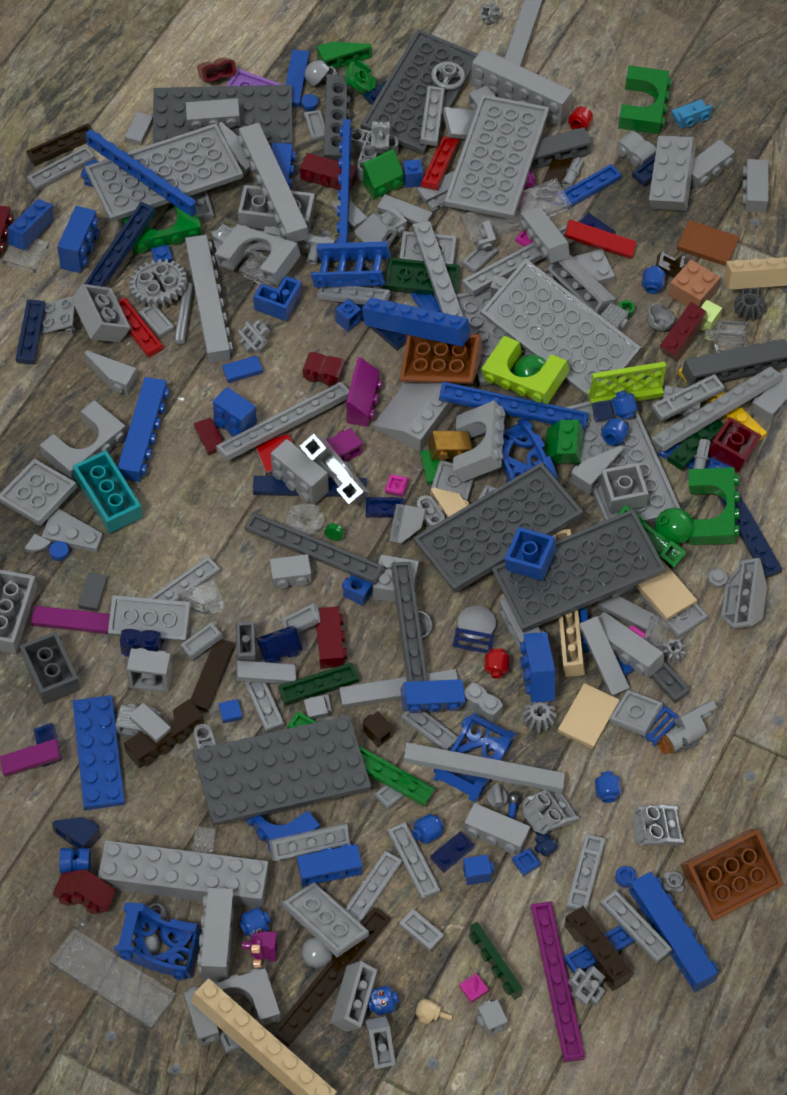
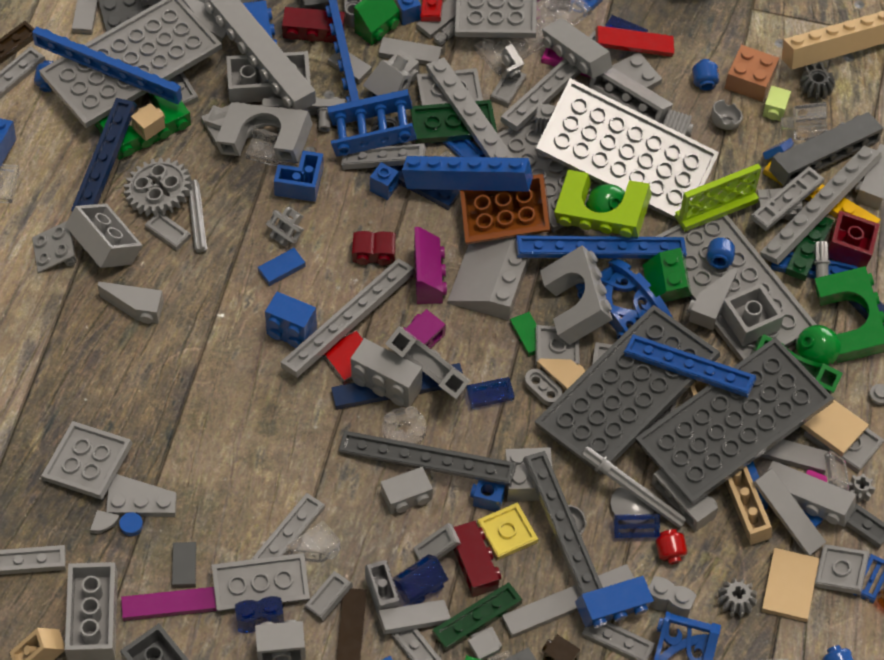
camera: 15 degrees left, 0 degrees up
(30, 331) = (26, 273): dark blue plate -> none
(78, 239) = (54, 155): blue brick -> none
(104, 424) = (120, 414): light grey arch -> none
(107, 491) = (170, 442): teal brick -> none
(140, 331) = (153, 247): red tile -> none
(143, 428) = (189, 360): blue brick -> none
(162, 253) = (151, 151): blue plate -> none
(163, 226) = (148, 121): none -> tan brick
(208, 300) = (220, 194): light grey brick -> none
(208, 435) = (265, 351): dark red tile -> none
(334, 532) = (442, 433): green tile -> none
(365, 622) = (507, 531): none -> light yellow tile
(396, 485) = (495, 364): dark pink tile -> none
(406, 522) = (520, 406): light grey slope -> none
(448, 444) = (541, 306): pearl gold brick -> none
(456, 583) = (607, 468): none -> light grey axle
(530, 553) = (679, 413): blue brick -> none
(538, 667) = (723, 542): blue brick -> none
(554, 517) = (690, 365): none -> blue tile
(602, 410) = (699, 231): dark blue tile -> none
(624, 404) = (722, 220): blue head -> none
(628, 304) = (682, 108): green bush -> none
(669, 264) = (718, 54): dark brown bracket -> none
(683, 331) = (759, 125): dark red brick -> none
(696, 354) = (781, 147): none -> blue tile
(707, 243) = (749, 23): dark orange tile -> none

